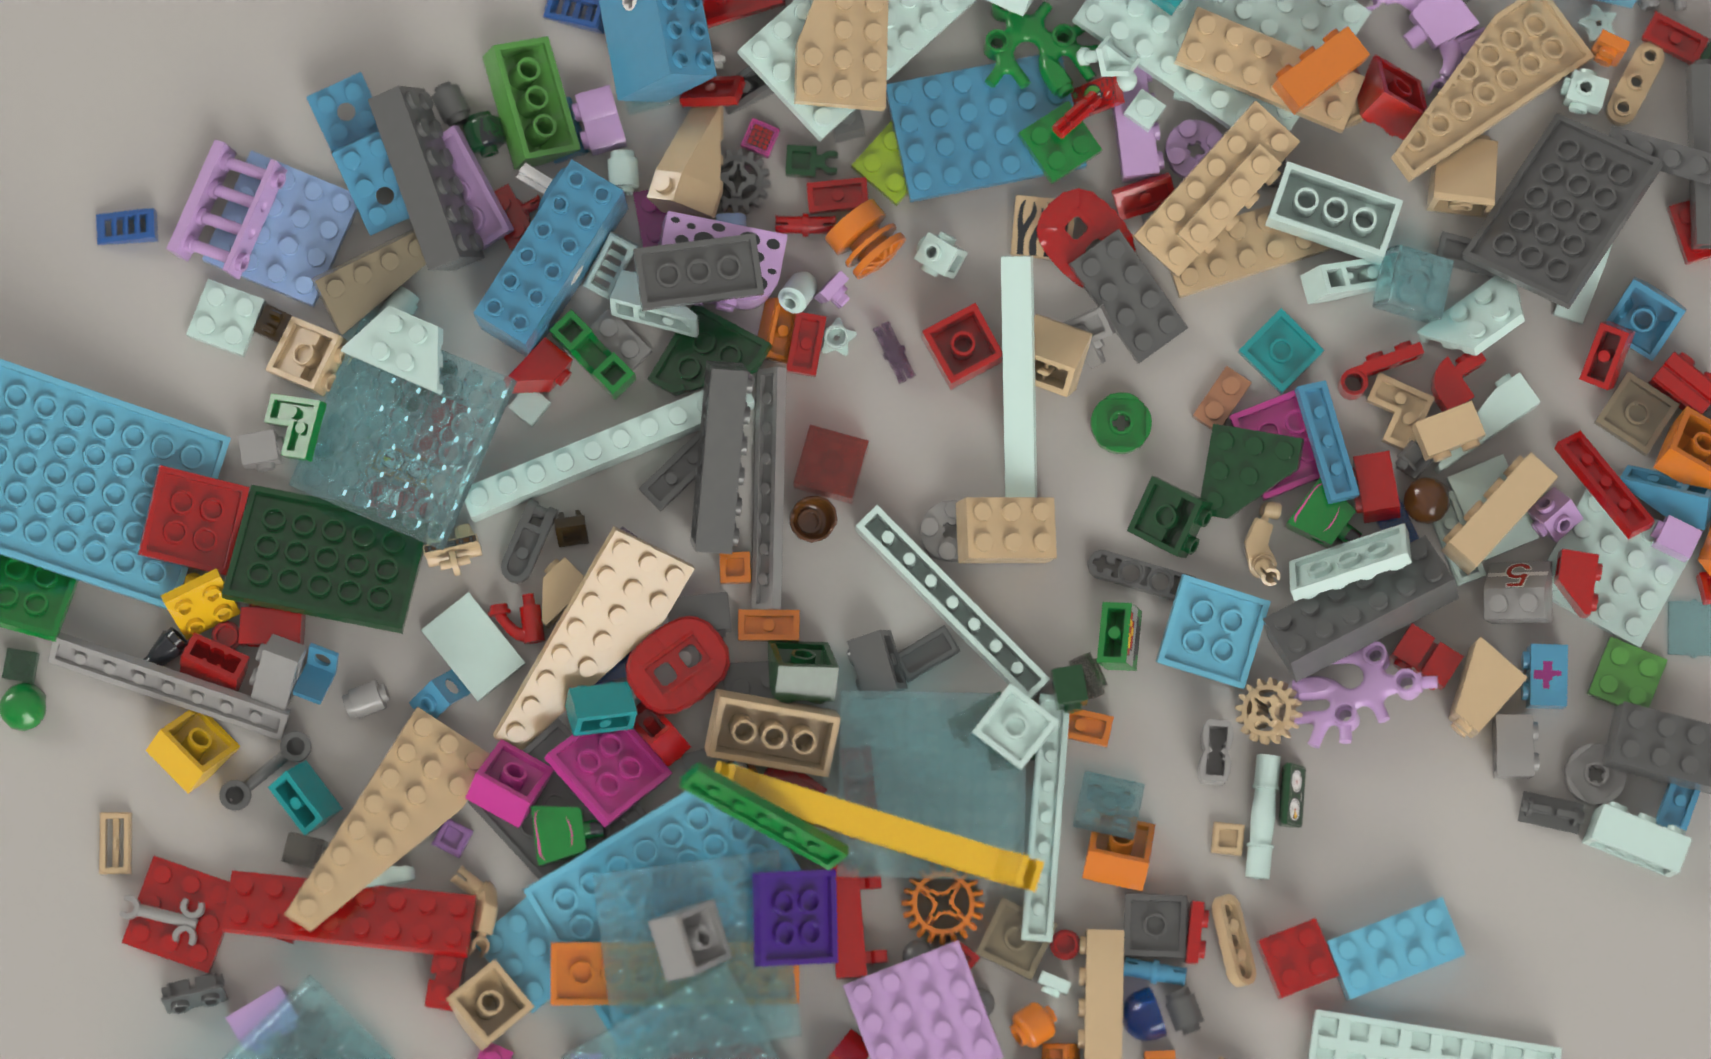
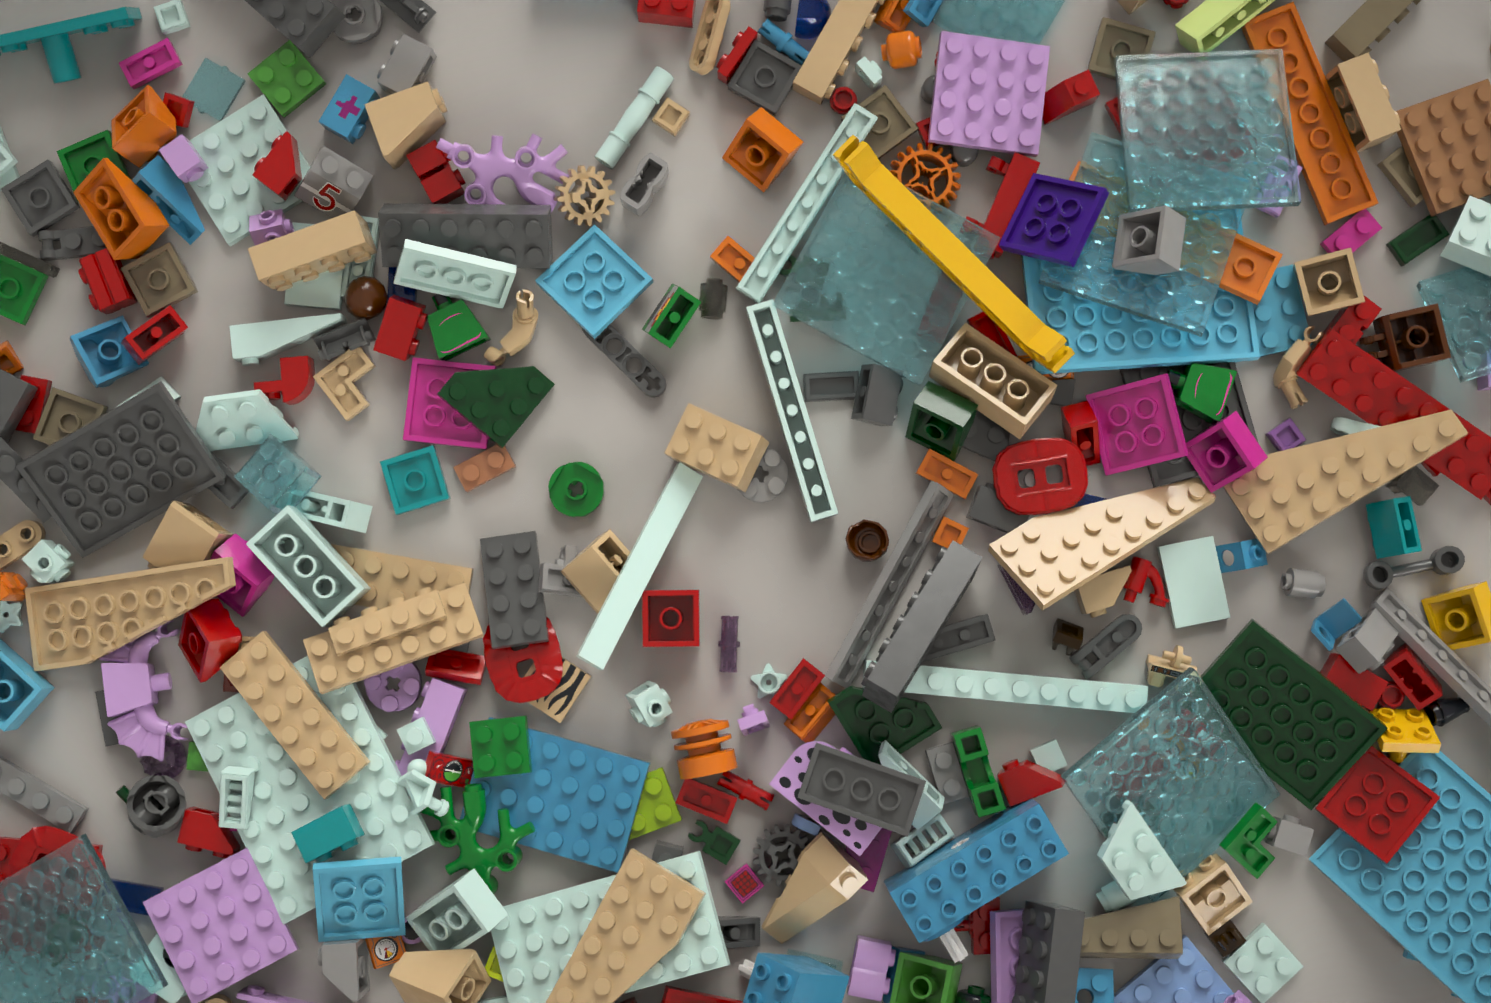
camera: 155 degrees left, 5 degrees up
(382, 975) = (1394, 343): none -> reddish brown hinge
(600, 708) = (1120, 473): teal brick -> none
(623, 170) = (873, 913): light aqua brick -> none
(714, 92) = (760, 939): red plate -> none
(763, 816) = (1047, 310): green plate -> none
(798, 292) = (781, 734): light aqua brick -> none
(831, 464) = (829, 577): clear red brick -> none
(1015, 726) = (796, 279): light aqua plate -> none
(1069, 688) = (735, 290): dark green brick -> none
(1076, 114) = (474, 761): red axle -> none
(1109, 805) = (751, 187): clear light blue plate -> none
(1170, 518) = (578, 390): dark green plate -> none
(1292, 795) = (603, 123): dark green slope -> none
(1320, 69) = (251, 690): orange brick -> none
(1327, 442) = (419, 382): dark azure plate -> none
(1378, 362) = (342, 428): red plate -> none
(1388, 179) = (251, 575): none -> dark pink slope
(1448, 432) = (316, 337): tan brick -> none
(1604, 484) = (216, 233): red plate -> none
(1646, 236) = (64, 415): none -> dark tan plate

